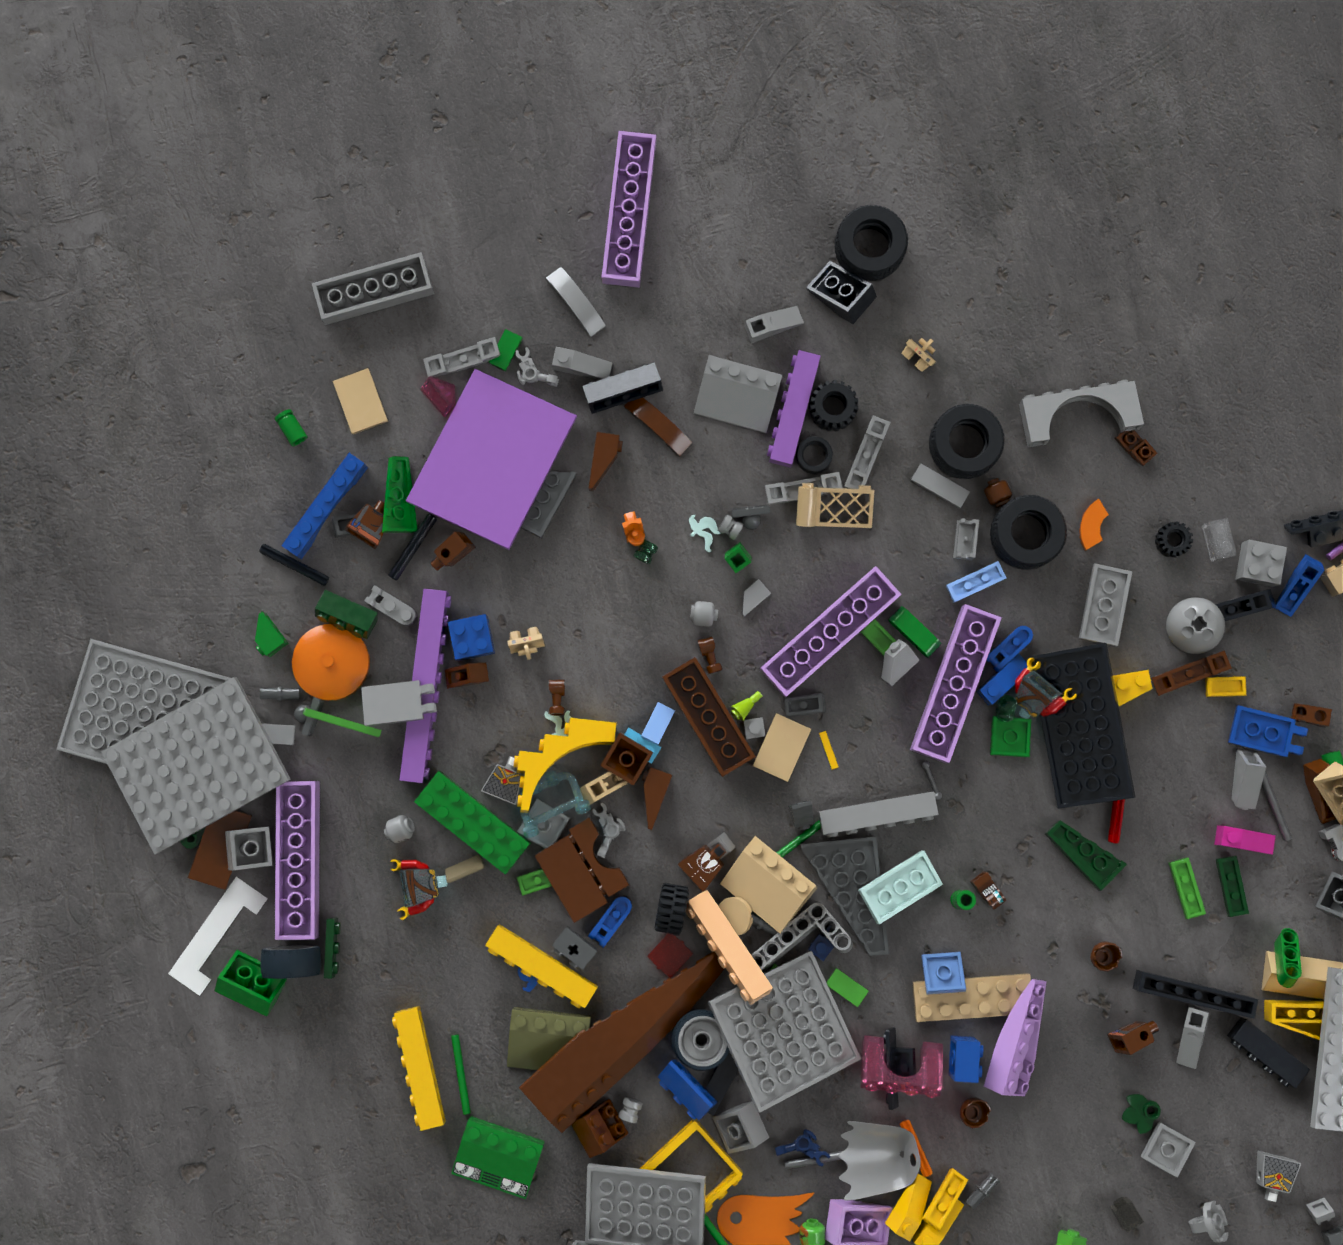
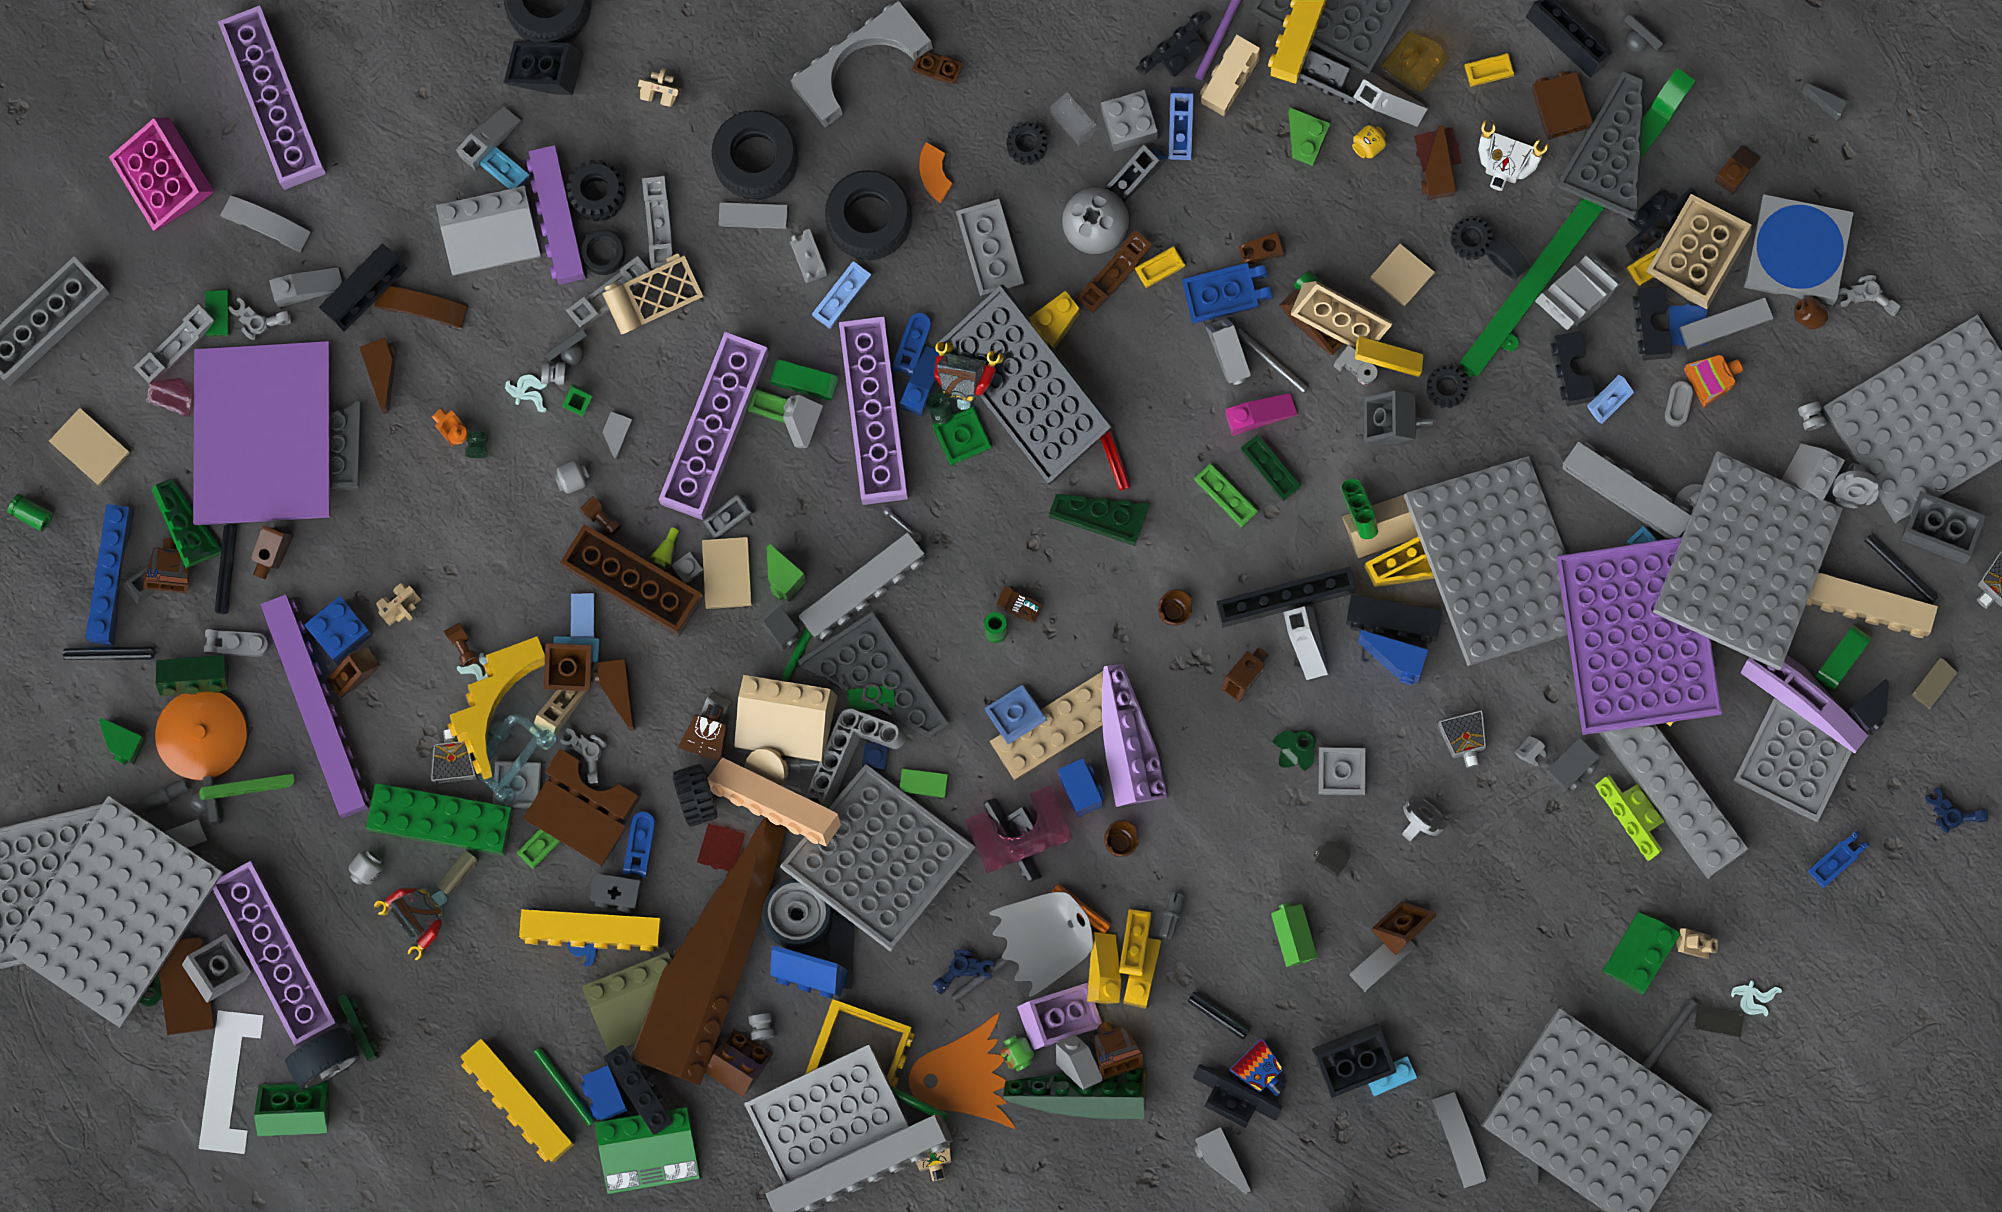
camera: 20 degrees left, 5 degrees down
(396, 702) = (294, 735): light grey tile -> none
(487, 1102) = (605, 1094): none -> blue brick
(514, 1115) = (638, 1088): none -> black bracket
(518, 223) = (161, 173): none -> dark pink slope
(741, 1127) = (886, 983): light grey slope -> none
(773, 353) = (504, 169): none -> medium azure plate
(823, 774) = (783, 575): none -> bright green slope
(828, 749) = (768, 540): yellow piece -> none
(828, 901) = (872, 693): none -> green tile
(900, 887) = (923, 649): light aqua plate -> none
(998, 492) = (816, 190): reddish brown head -> none
(1256, 1088) = (1399, 658): none -> blue slope

